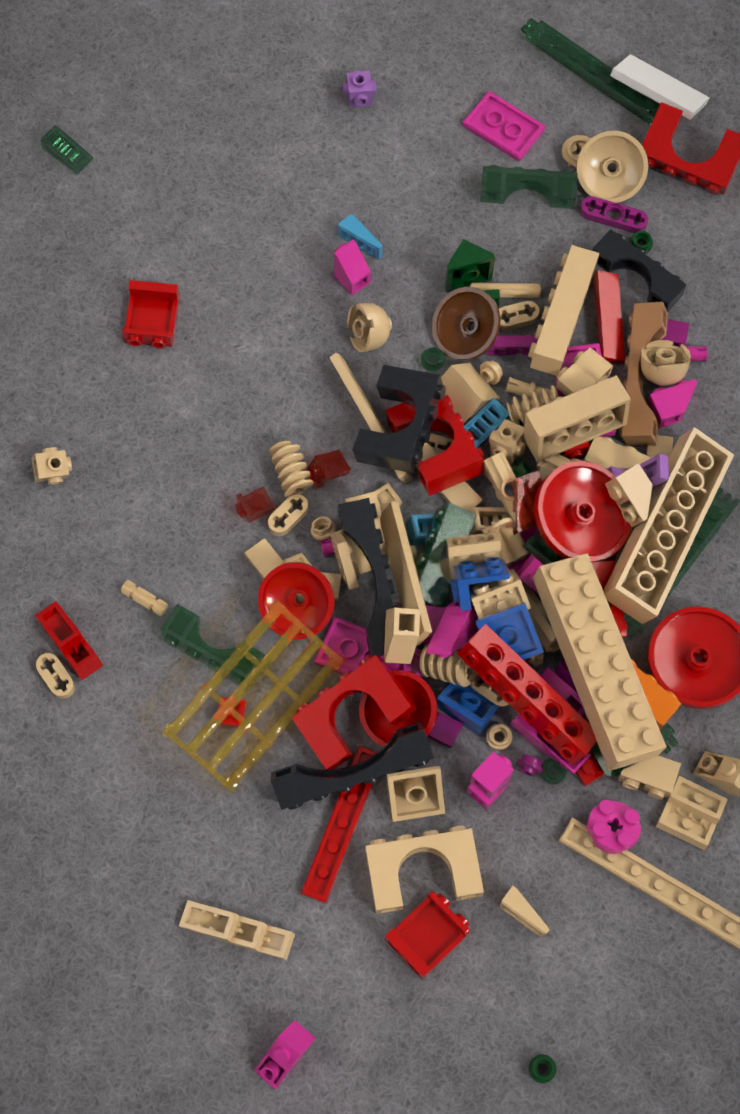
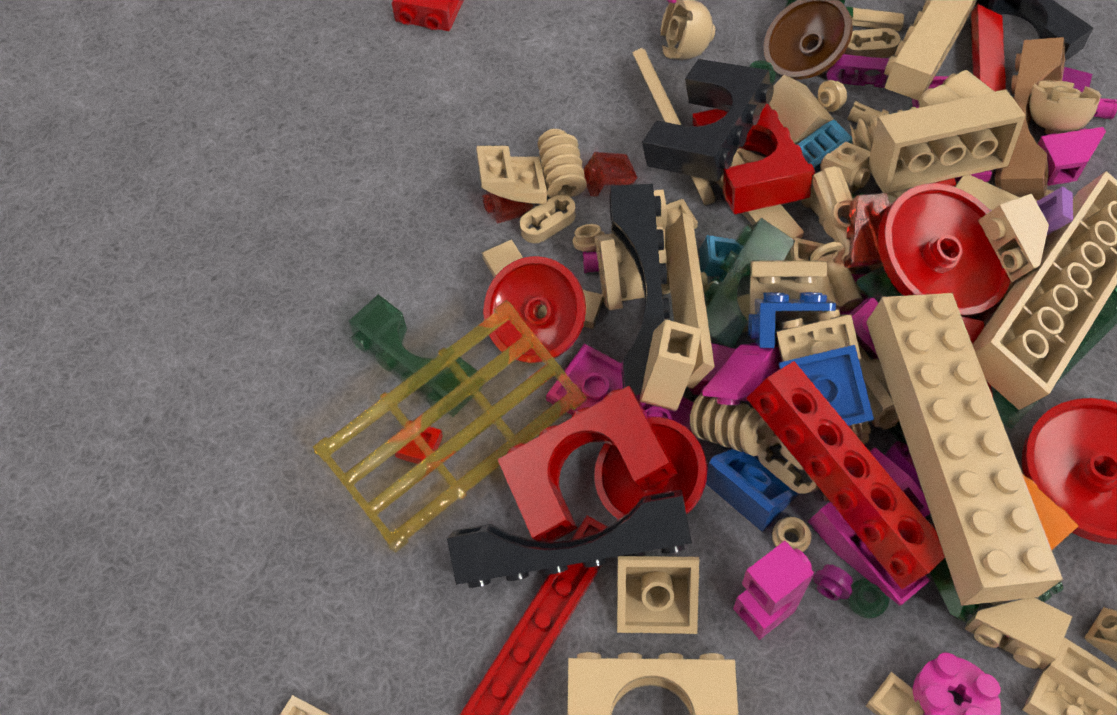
camera: 15 degrees right, 10 degrees down
(45, 472) = (269, 125): tan brick -> none
(60, 672) = (195, 366): tan beam -> none
(69, 640) = (232, 324): red slope -> none
(144, 598) = (341, 287): tan axle -> none
(255, 484) = (510, 176): none -> tan slope
(445, 730) = (714, 515): magenta tile -> none
(589, 770) = (925, 606): red plate -> none

